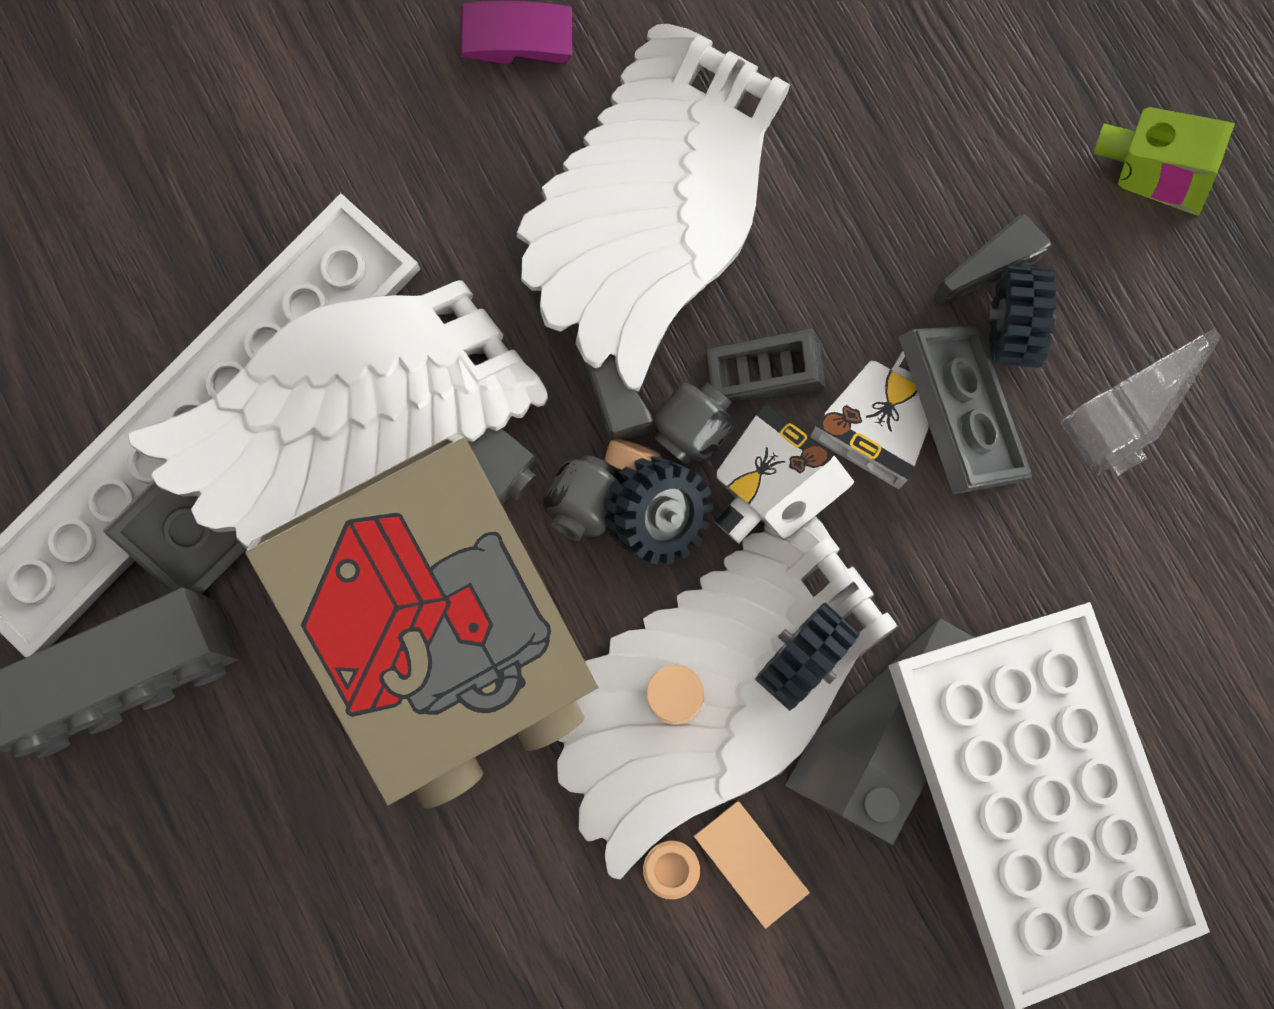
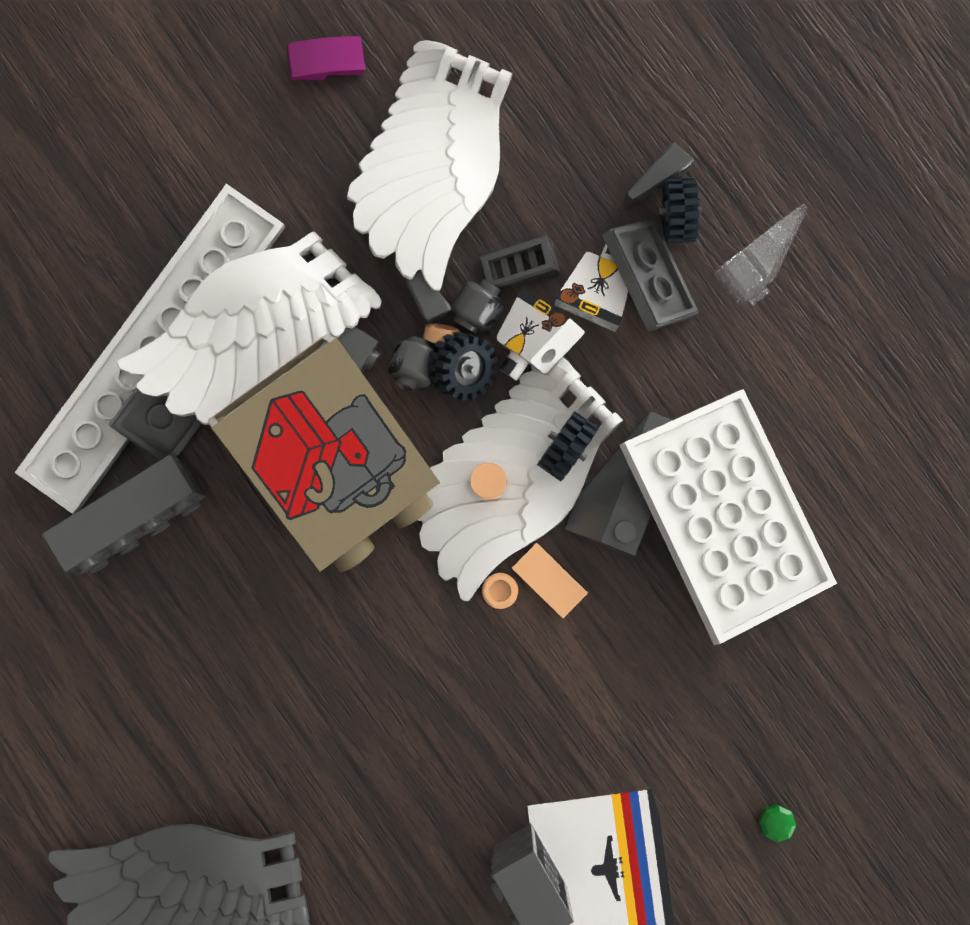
camera: 15 degrees left, 5 degrees up
(1168, 156) = (763, 91): lime torso -> none

